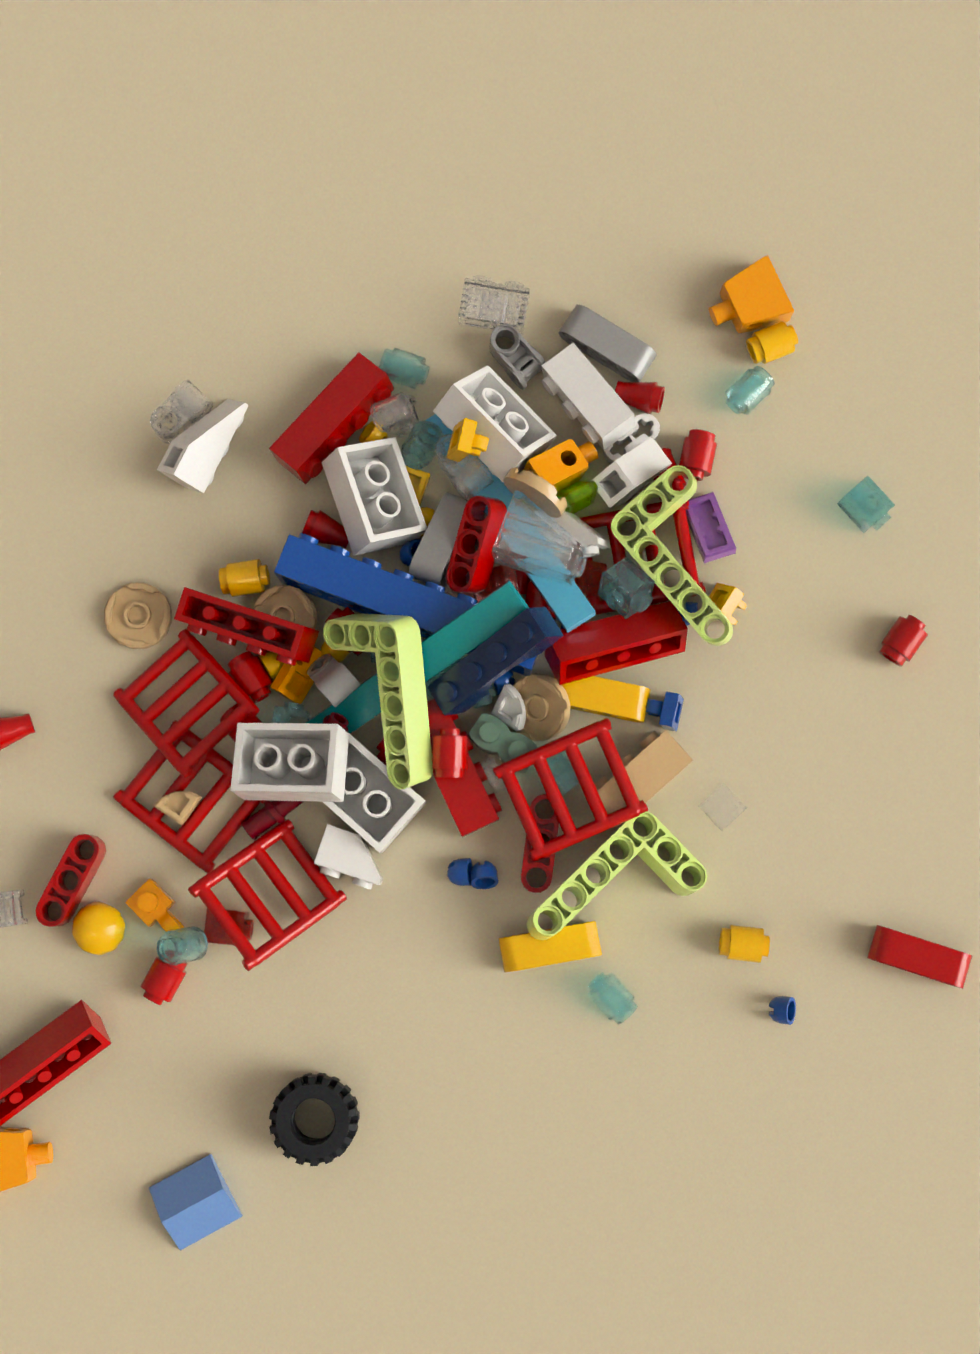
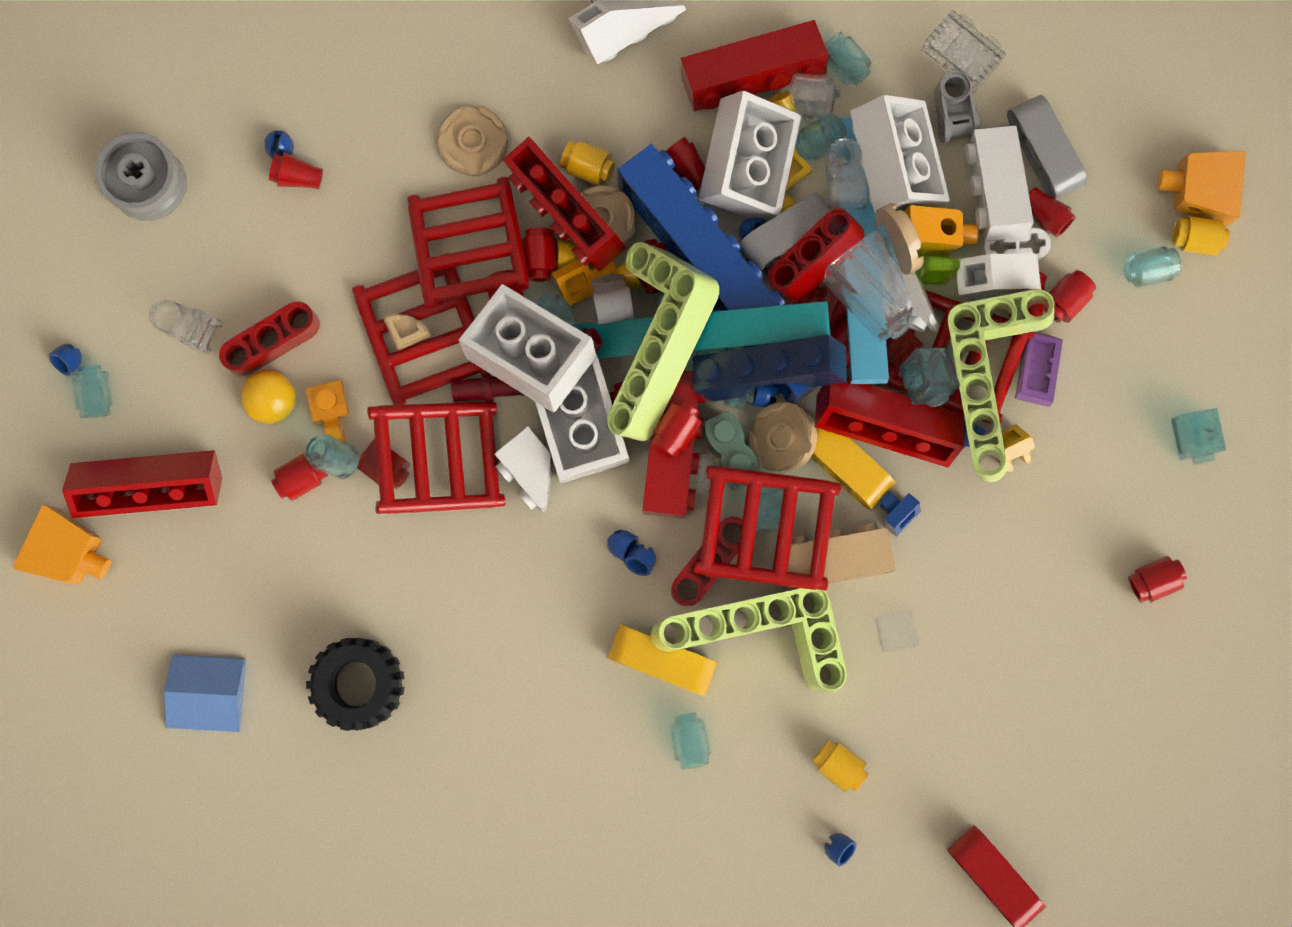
camera: 30 degrees right, 0 degrees up
(465, 441) = (864, 154): yellow tile -> none
(510, 708) = (757, 423): white tile -> none

